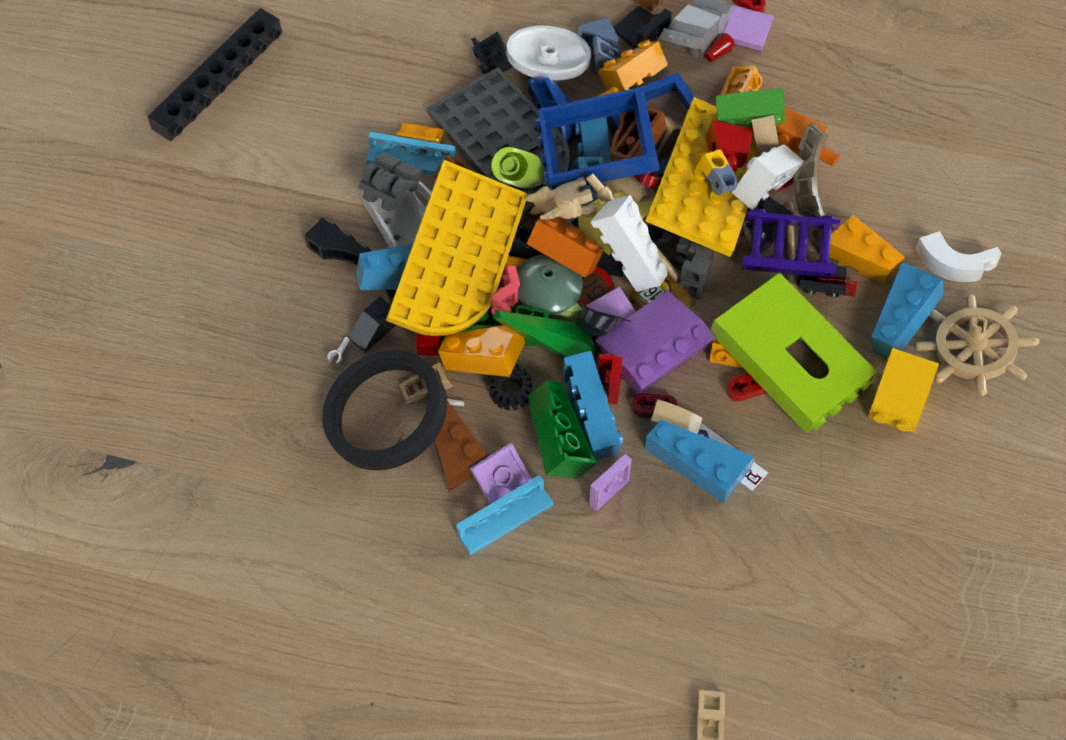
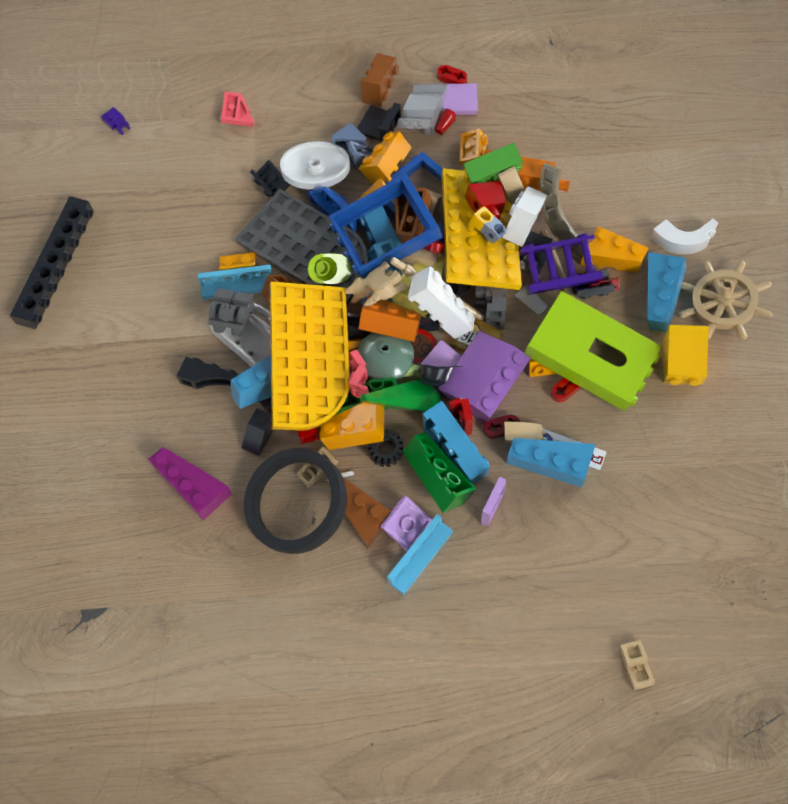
camera: 15 degrees left, 5 degrees up
(279, 359) = (192, 484): none -> magenta wedge
(338, 353) = (238, 462): white hand -> none
(745, 278) = (532, 301): none -> white sticker

